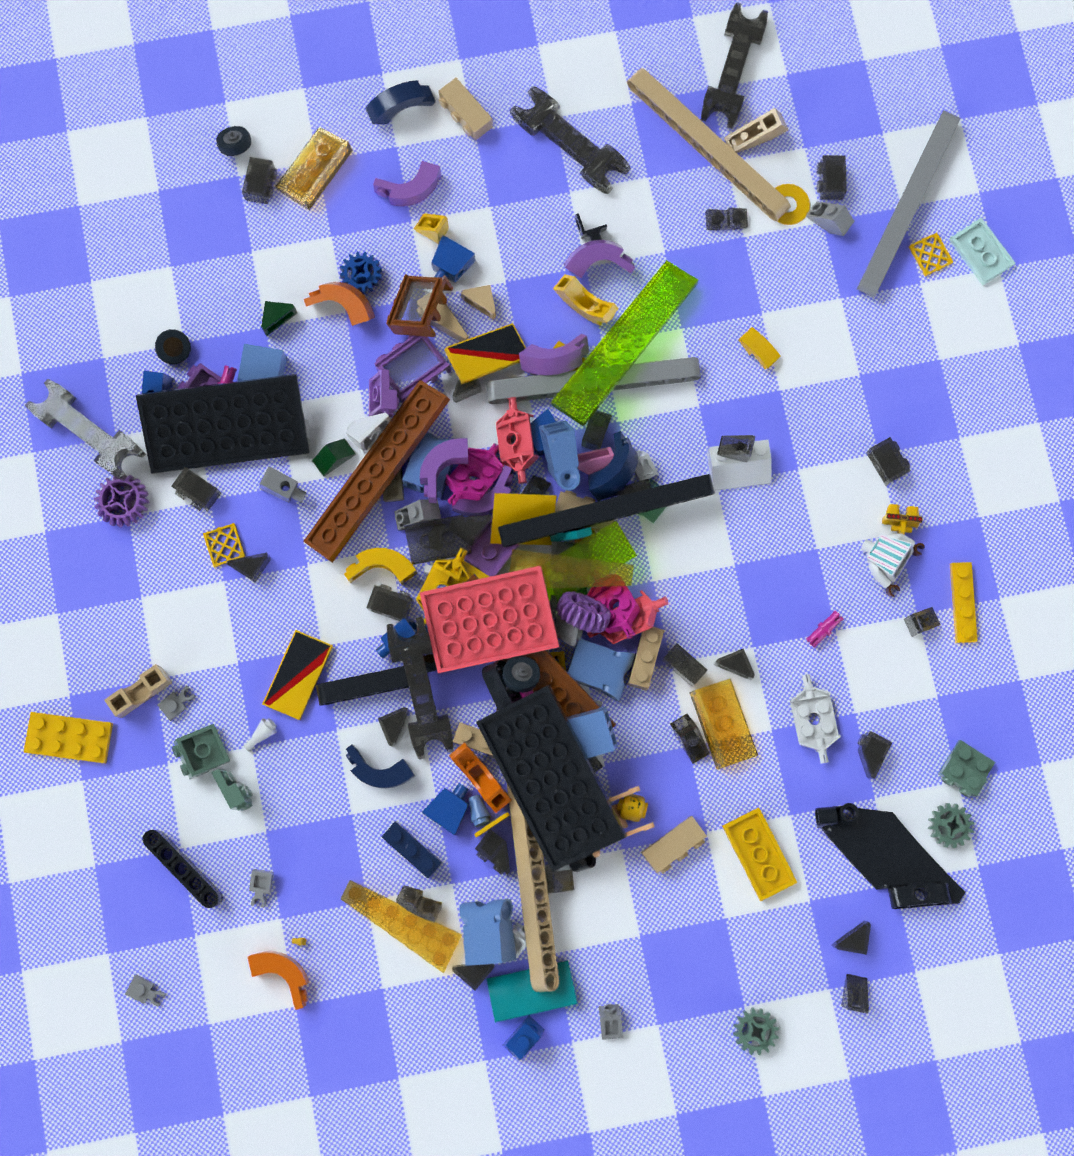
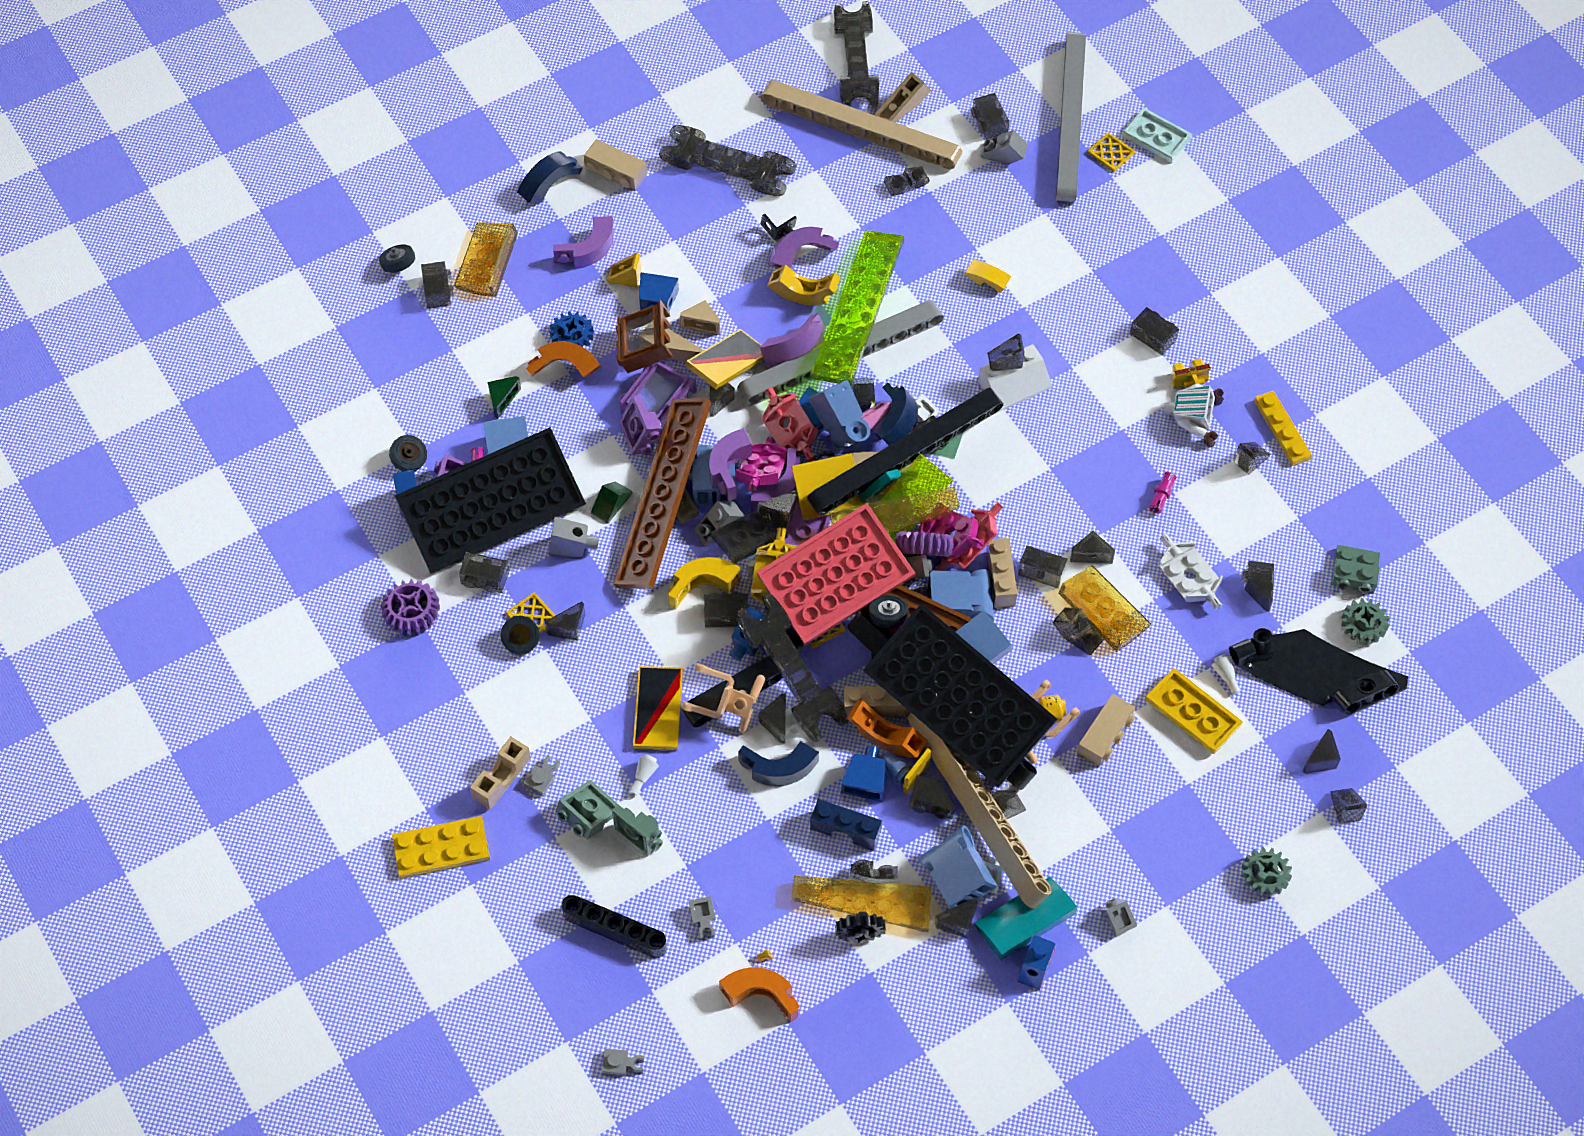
camera: 20 degrees left, 20 degrees down
(110, 449) = (380, 558): clear smoke piece -> none
(204, 563) = (519, 635): none -> black wheel
(356, 703) = (732, 700): none -> light nougat piece
(367, 430) = (637, 462): white slope -> none
(383, 954) = (860, 927): none -> black gear
(802, 201) = (972, 148): yellow gear -> none
(804, 824) = (1225, 668): none -> white cone

